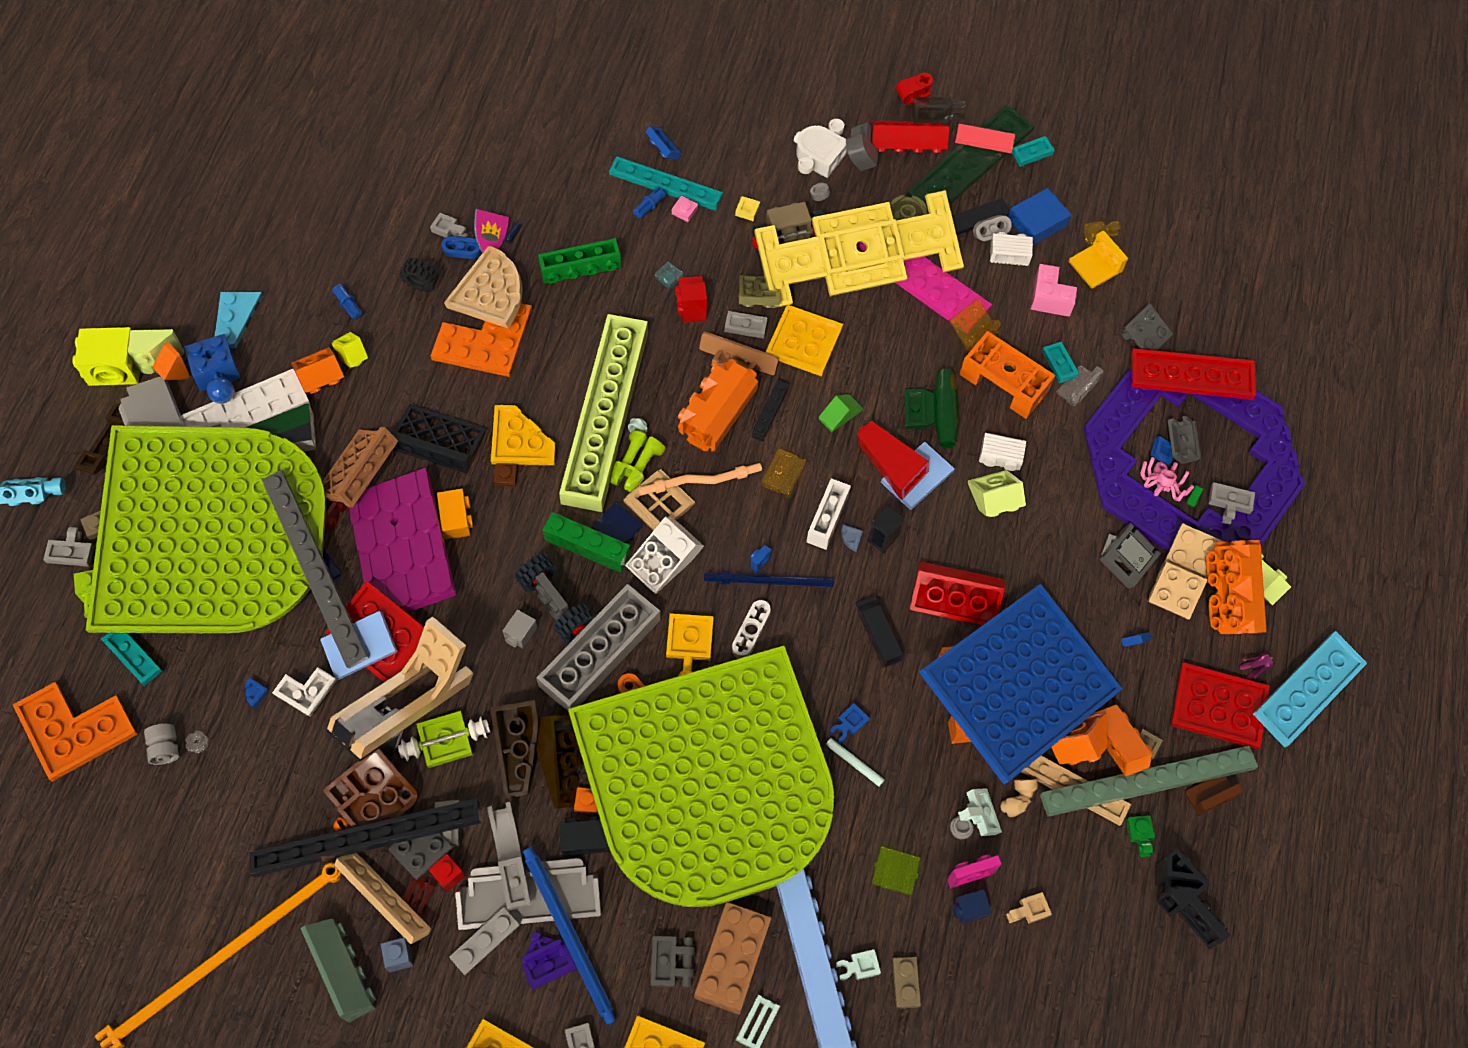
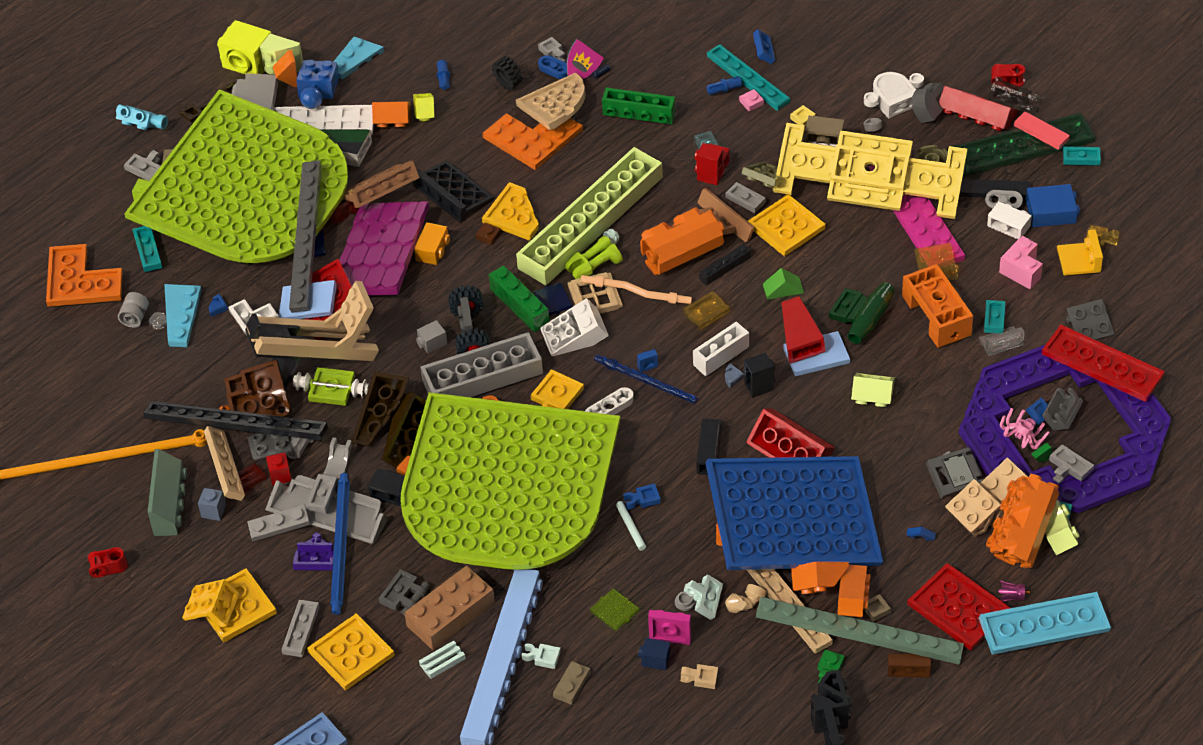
camera: 35 degrees right, 15 degrees down
(216, 717) = (181, 312): none -> medium azure wing
(1002, 452) = (898, 361): white brick -> none

